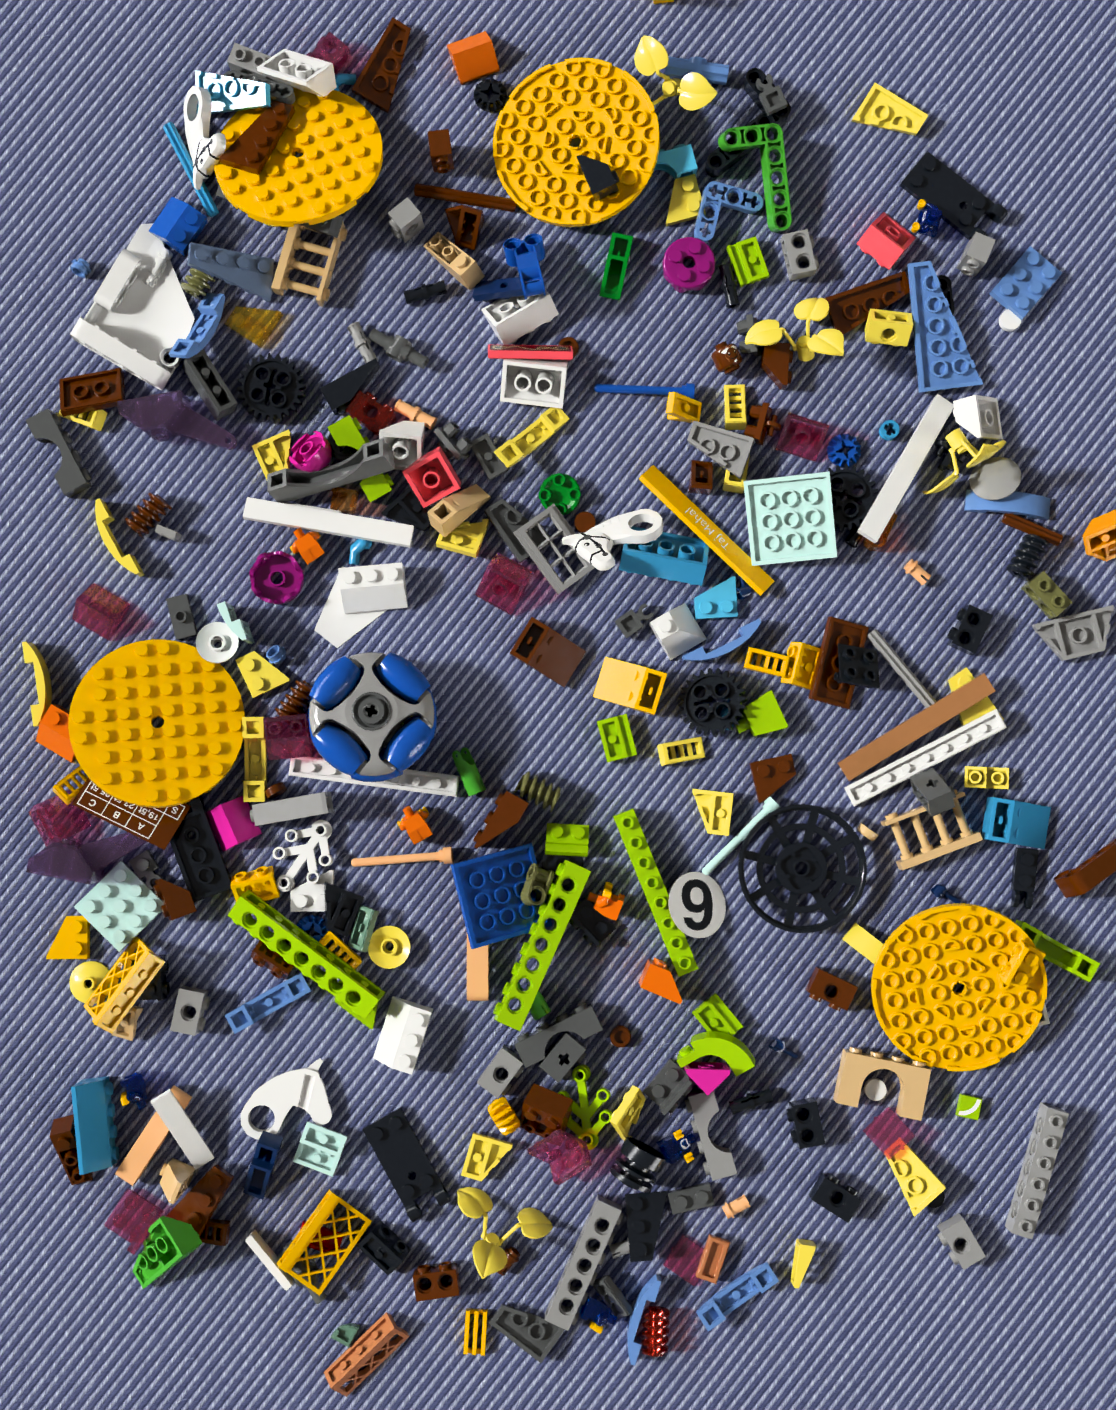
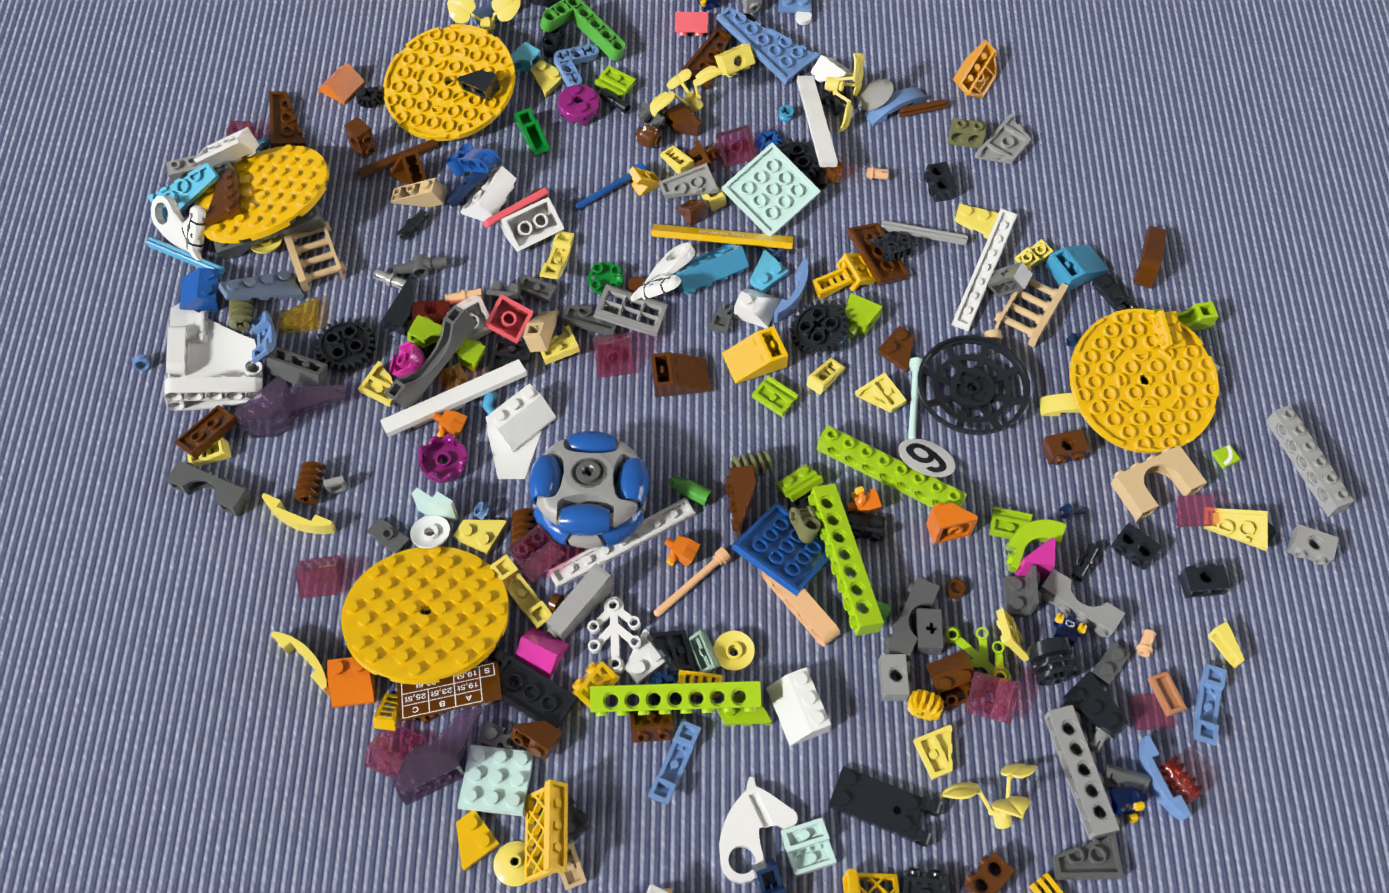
camera: 40 degrees left, 25 degrees down
(181, 1020) = (617, 831): light grey brick -> none
(405, 220) = (367, 188): light grey brick -> none
(512, 1257) = (1026, 823): reddish brown pin -> none
(793, 255) = (644, 59): light grey brick -> none
(875, 1089) = (1158, 491): white tile -> none
(916, 726) = (961, 256): medium nougat tile -> none
(1026, 555) = (935, 121): black piece -> none

